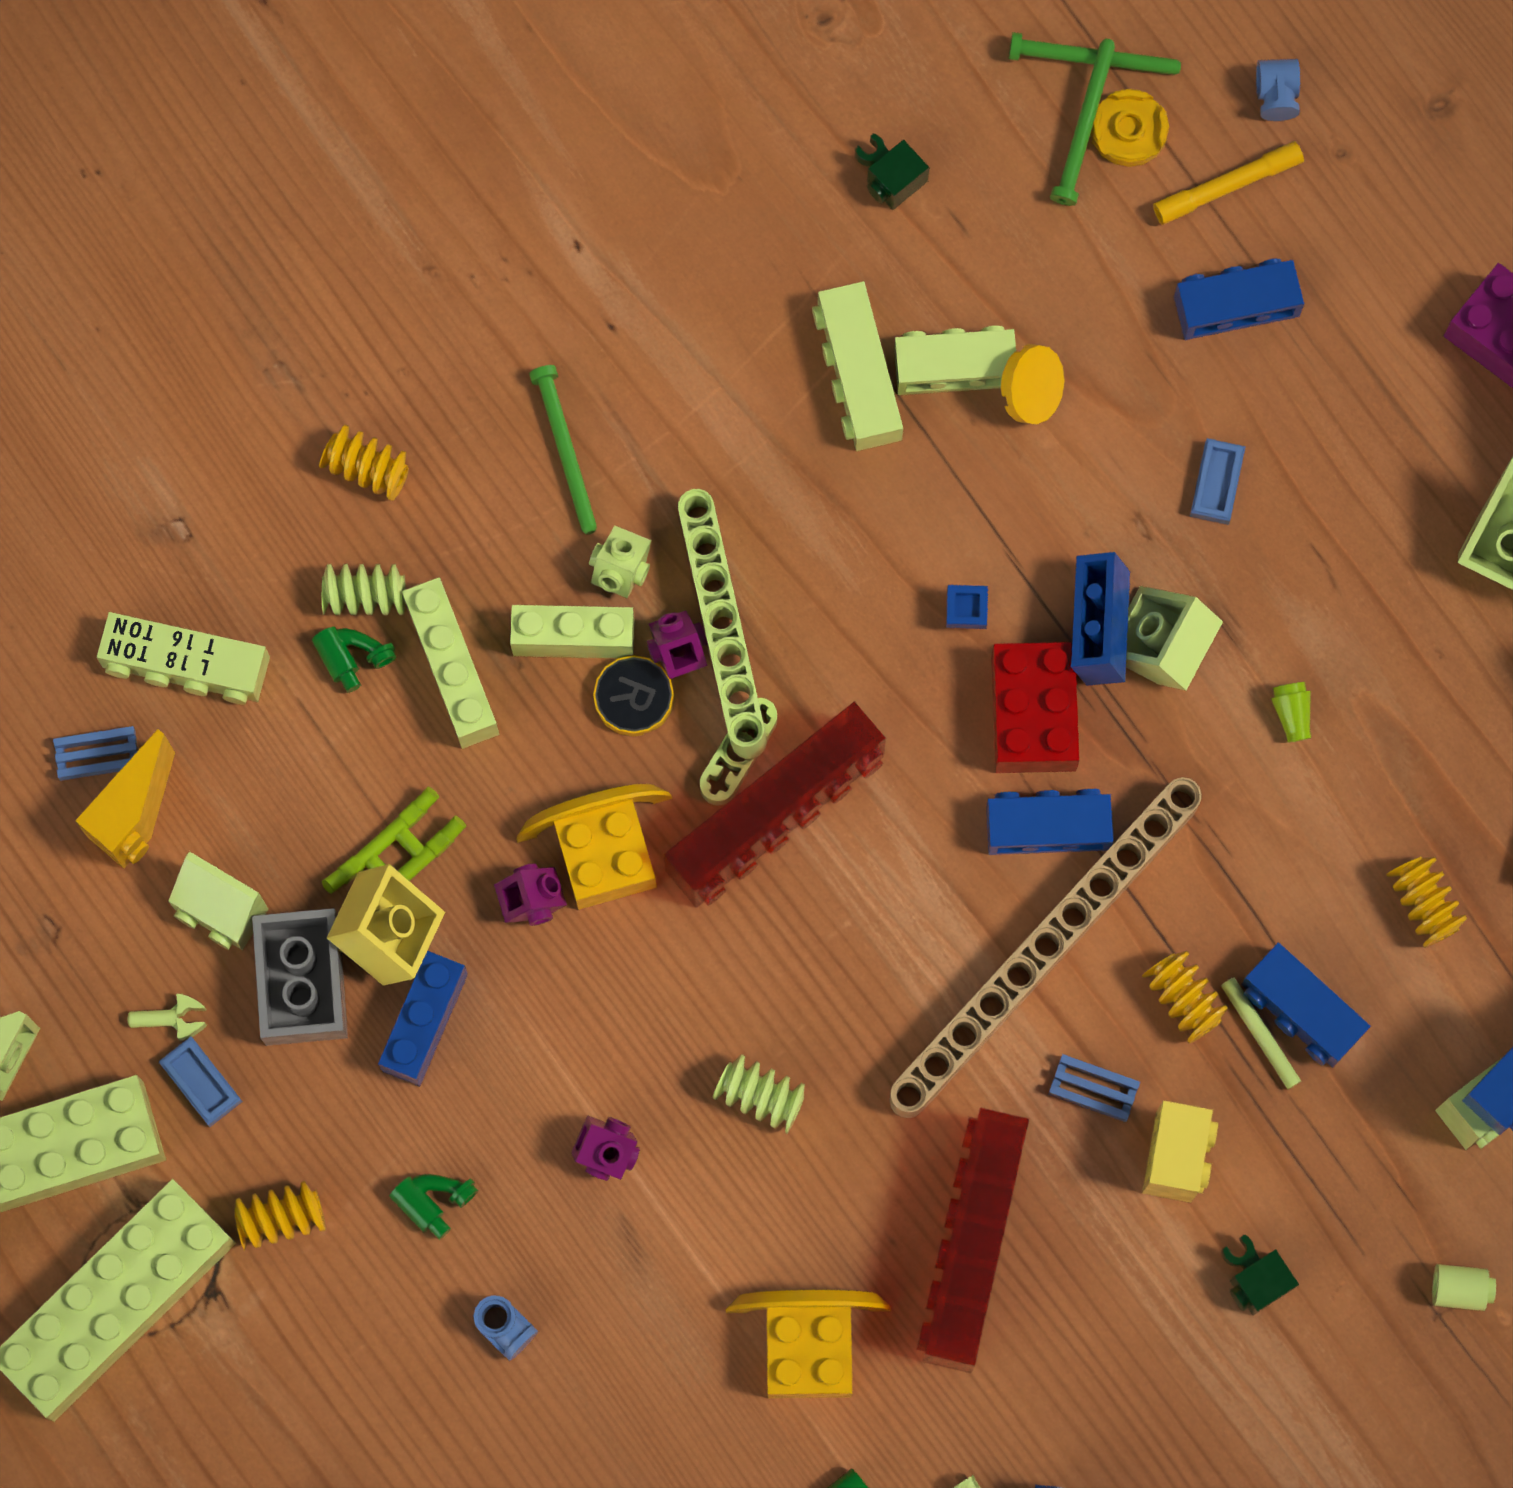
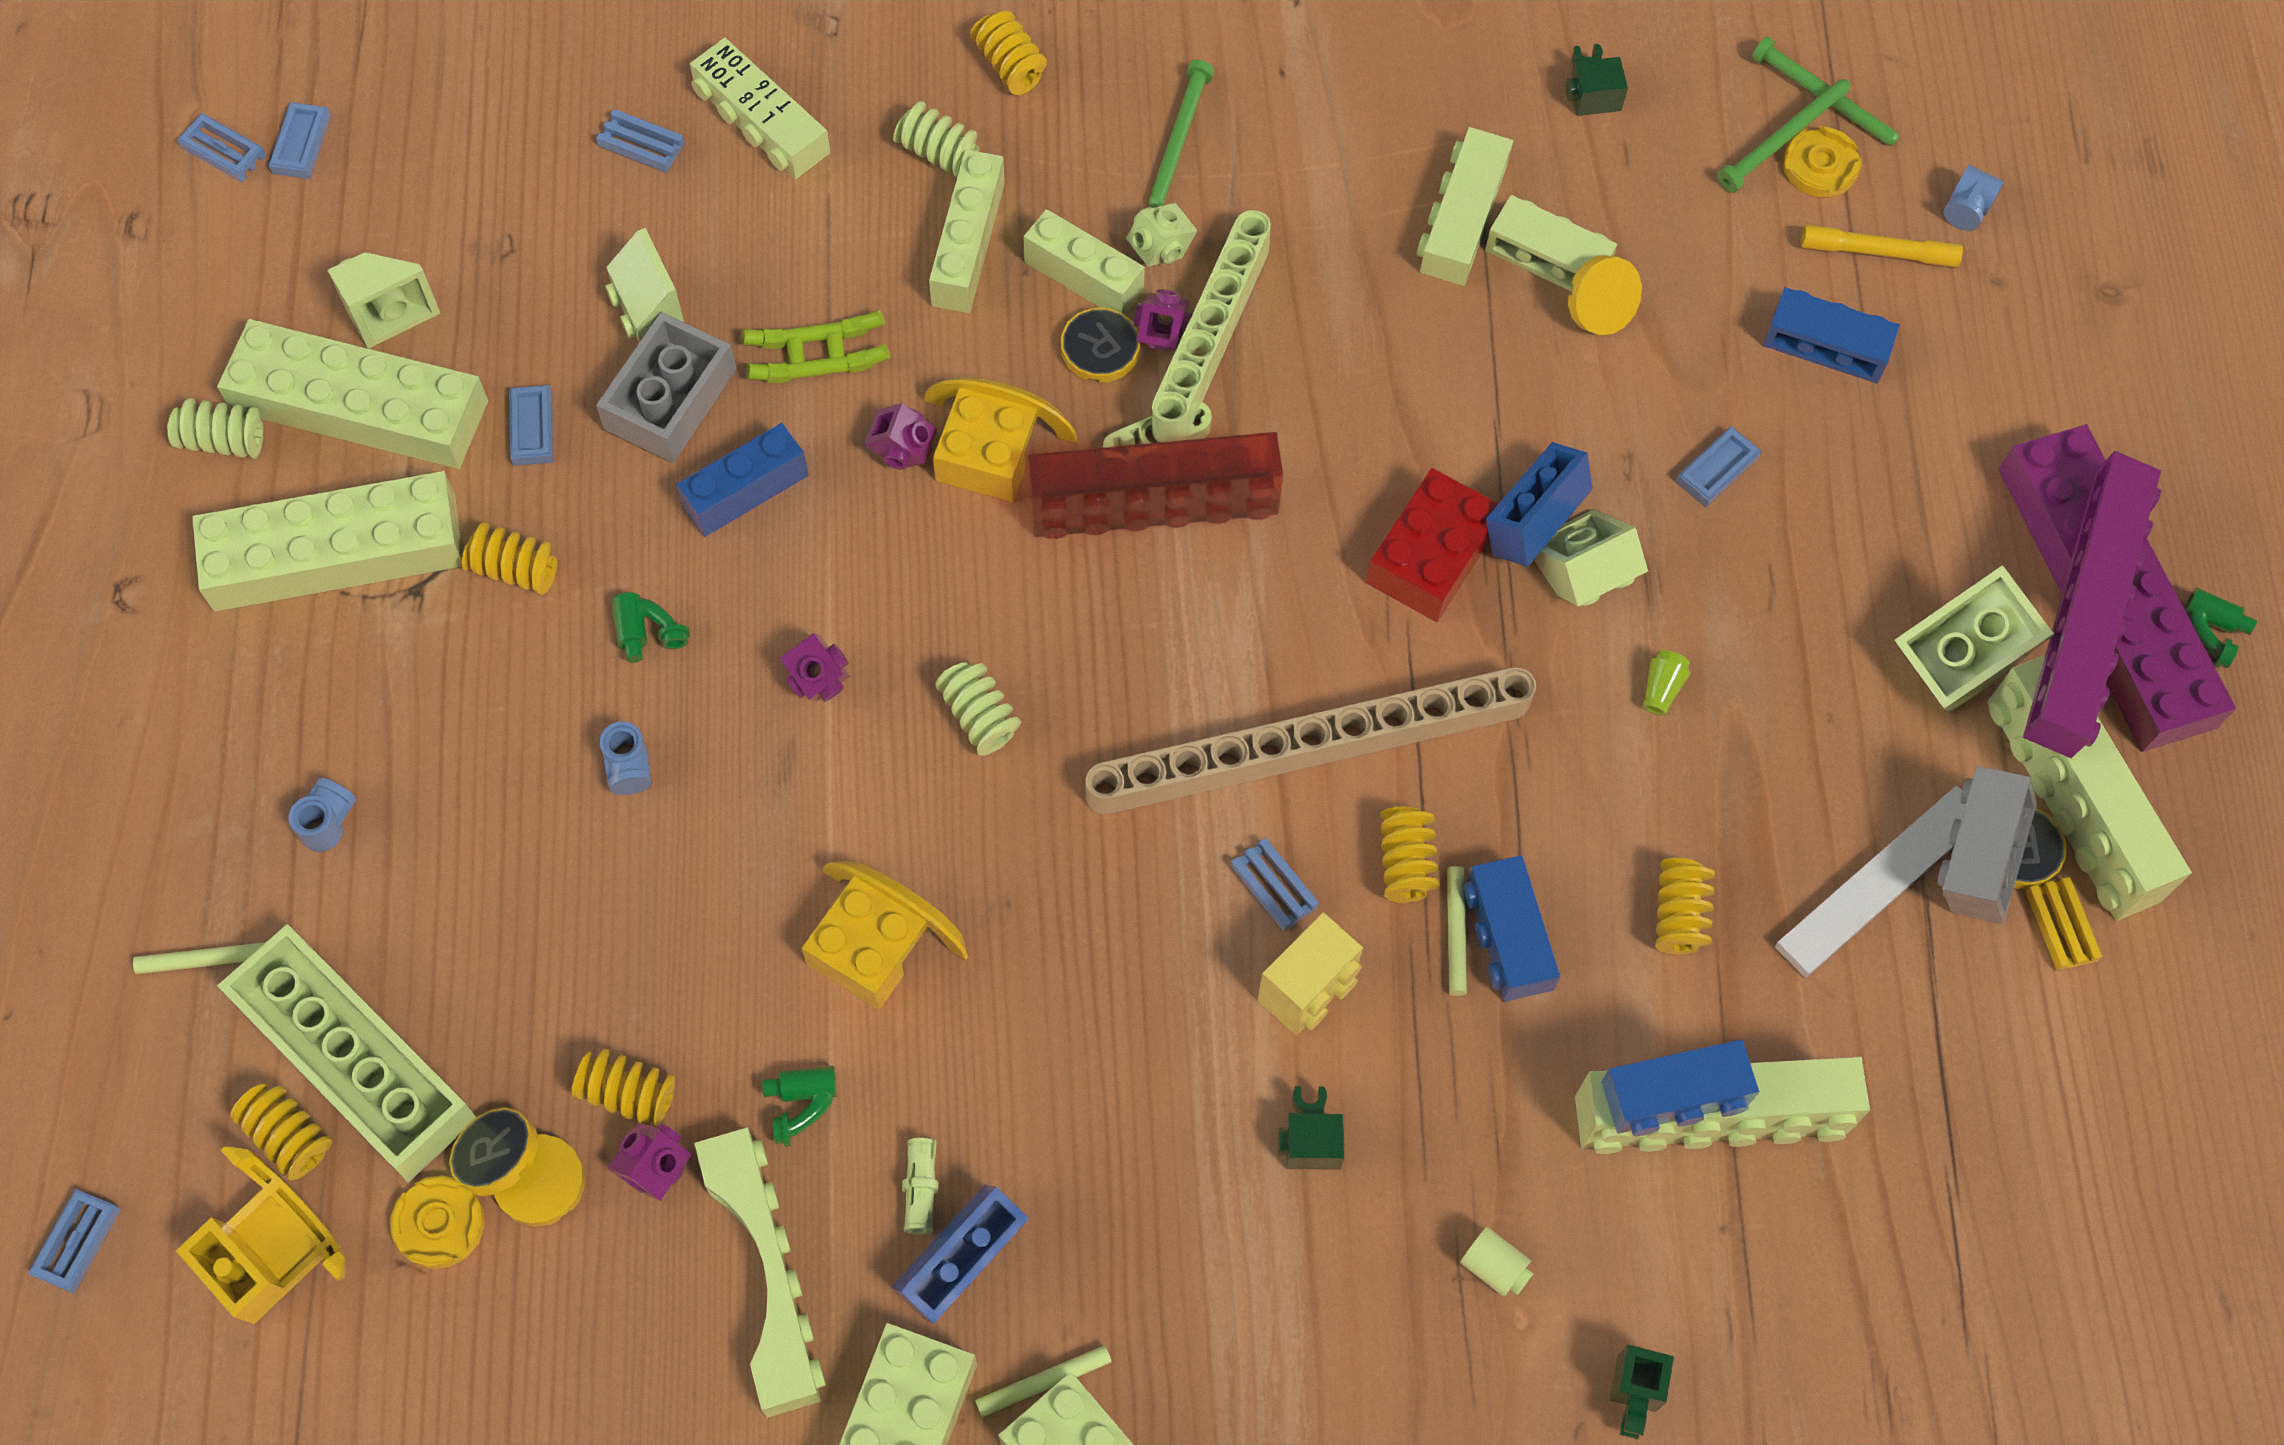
camera: 30 degrees right, 10 degrees down
(128, 807) = (637, 178): yellow slope -> none
(170, 1017) = (547, 364): yellowish green bar -> none
(333, 650) = (880, 182): green plant -> none
(386, 925) = (762, 382): light yellow brick -> none
(967, 606) = (1429, 432): blue tile -> none
(975, 1239) = (1074, 935): clear red brick -> none
(1049, 822) = (1382, 642): blue brick -> none

